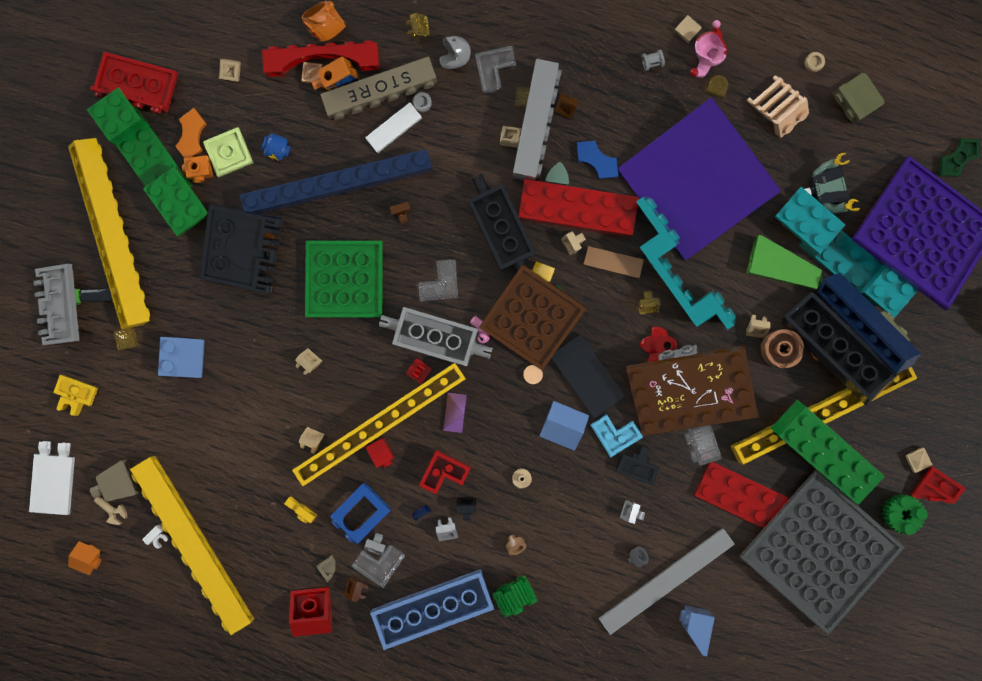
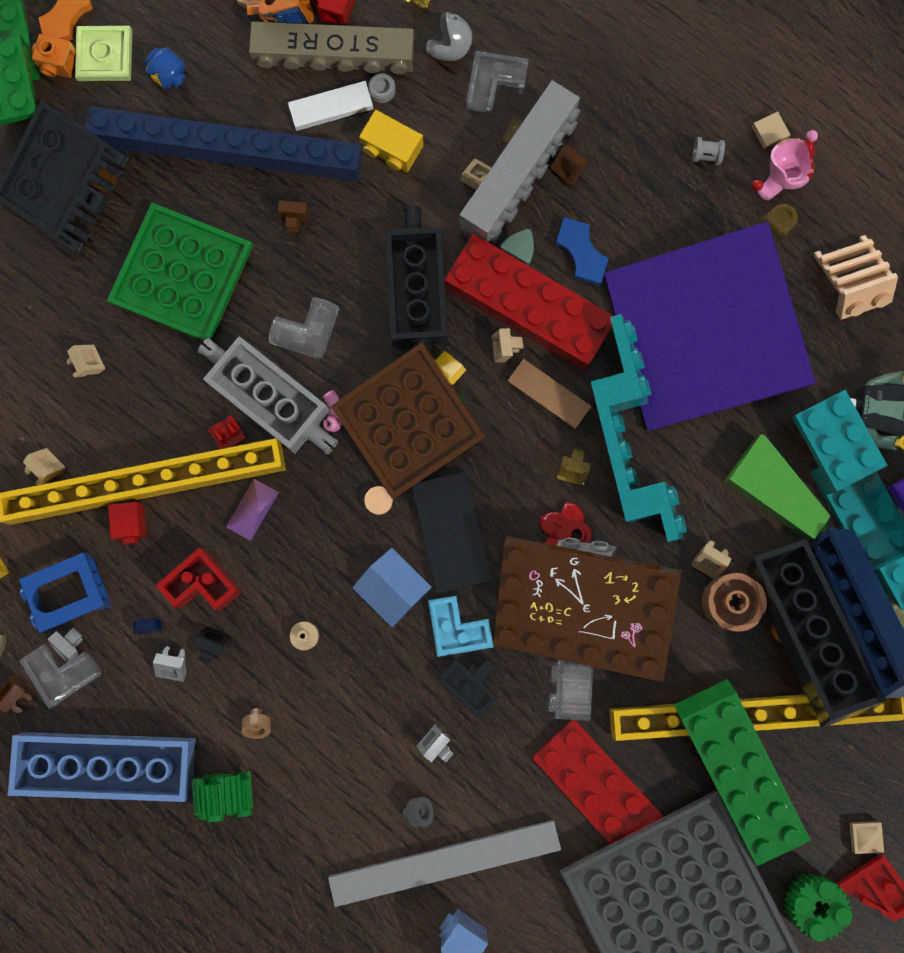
camera: 20 degrees right, 5 degrees down
(444, 137) = (391, 141): none -> yellow brick

